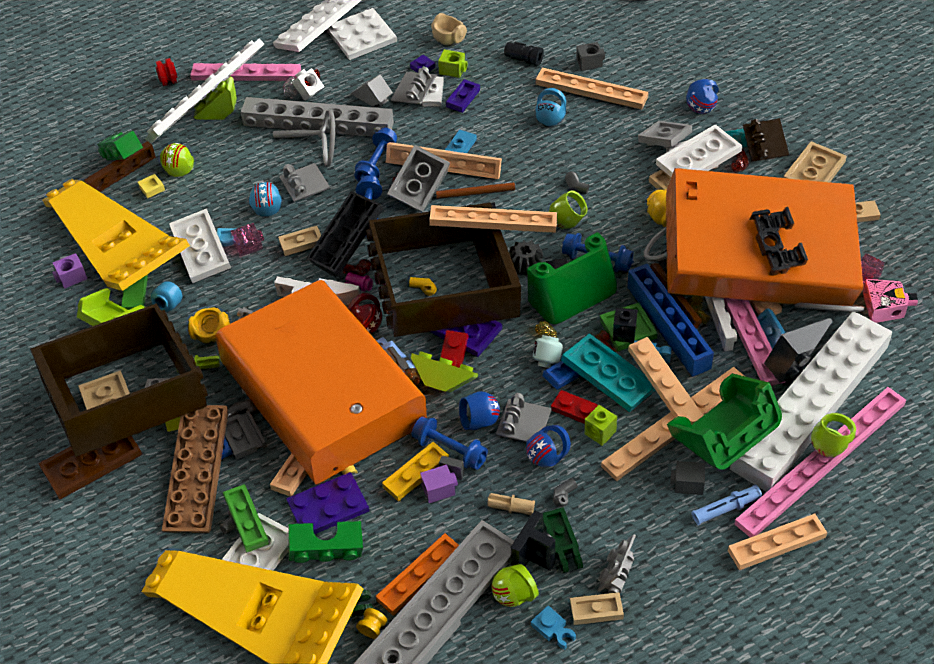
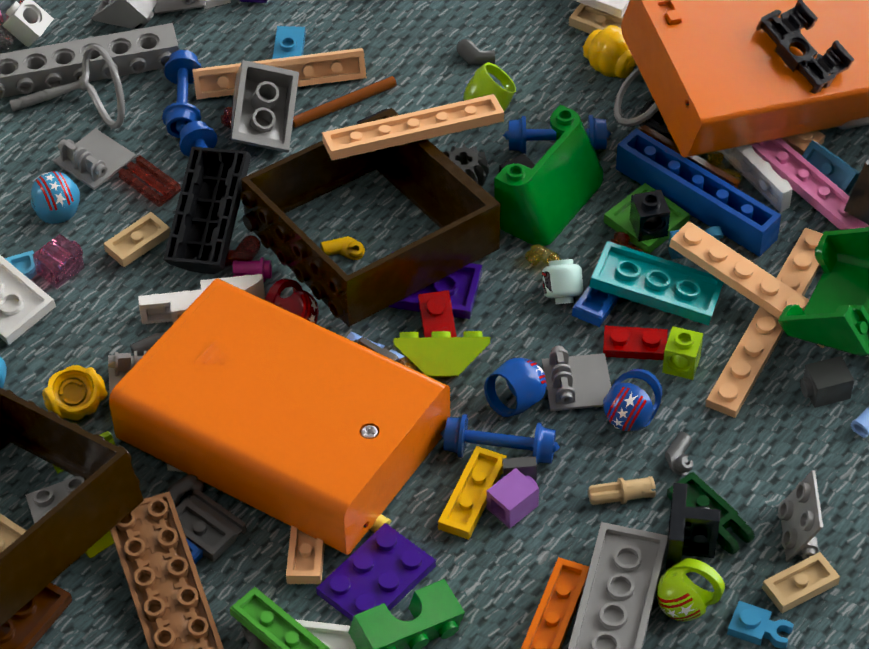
camera: 25 degrees left, 0 degrees up
(323, 195) = (142, 163): none -> clear red tile

